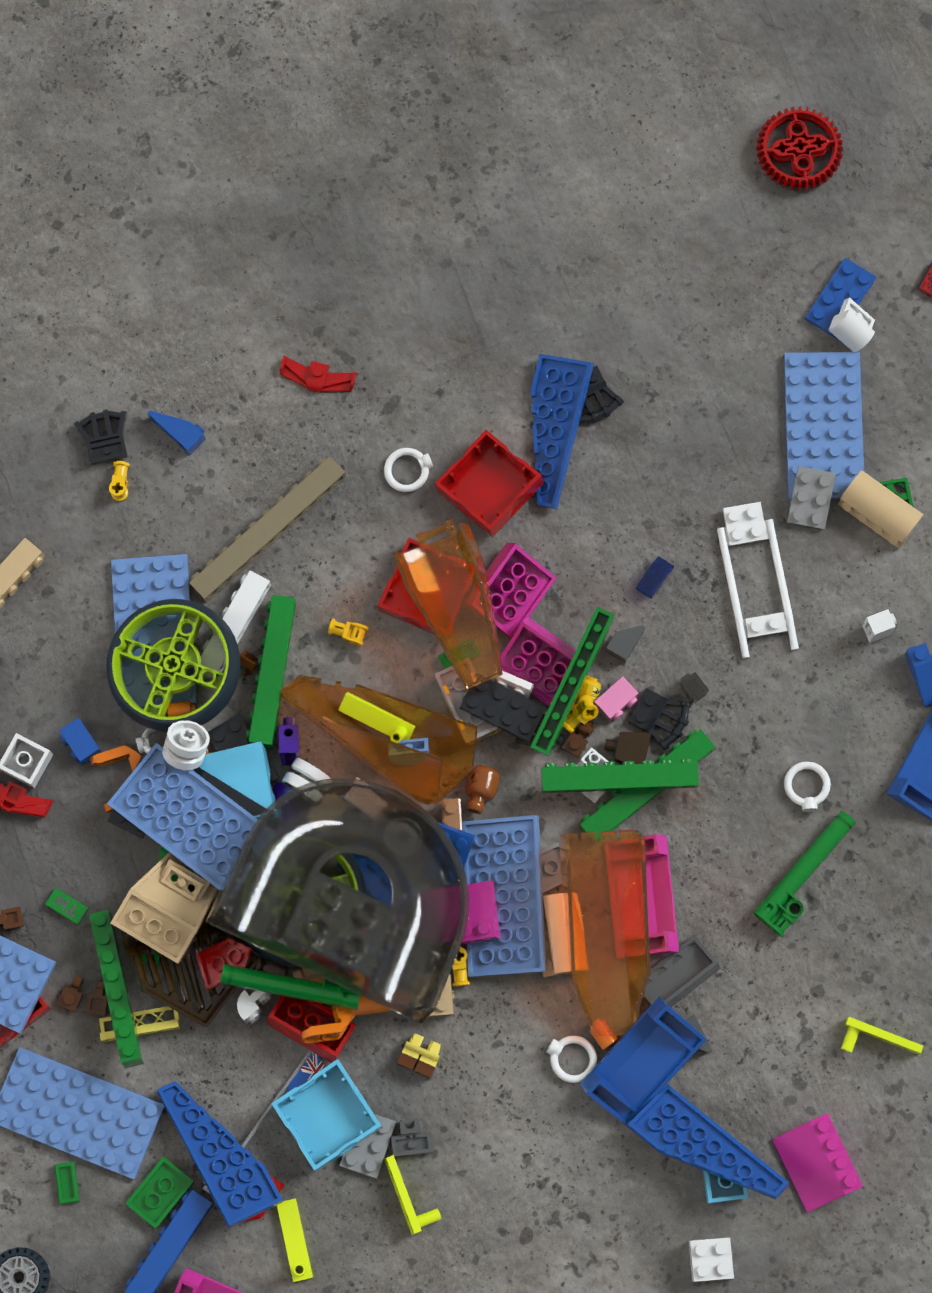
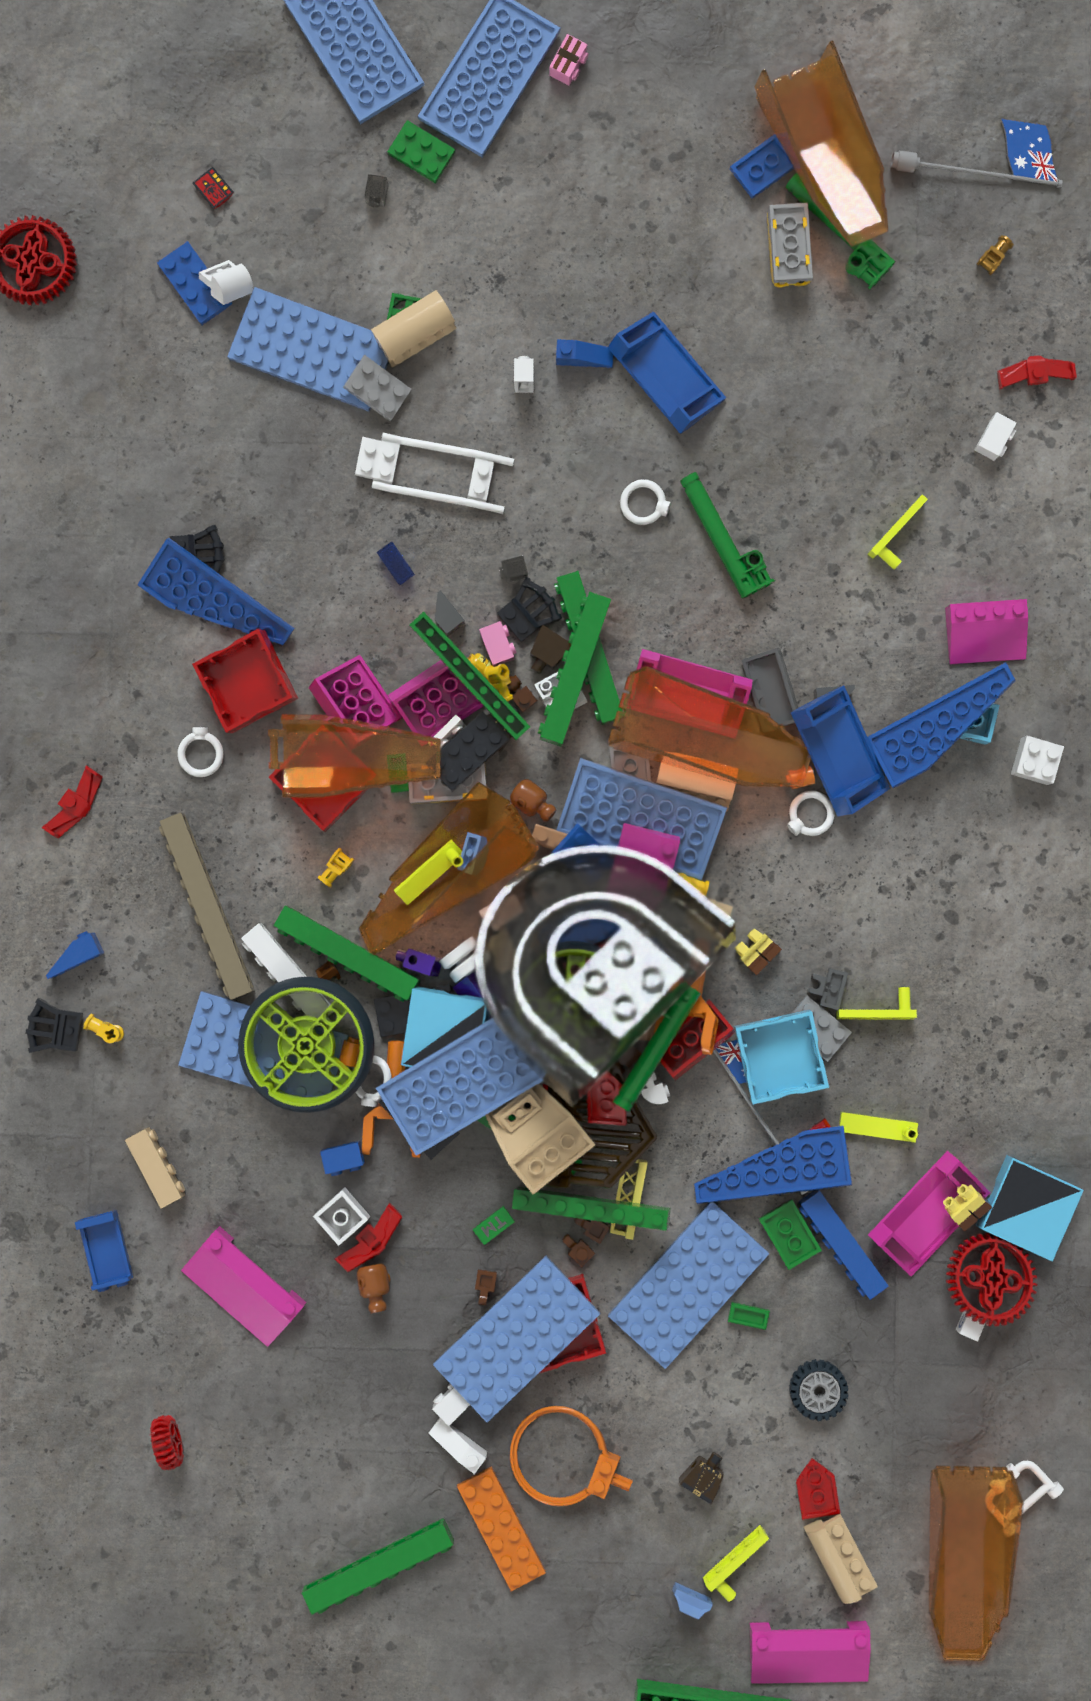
camera: 70 degrees left, 10 degrees up
(185, 745) = (390, 1061): white wheel -> none

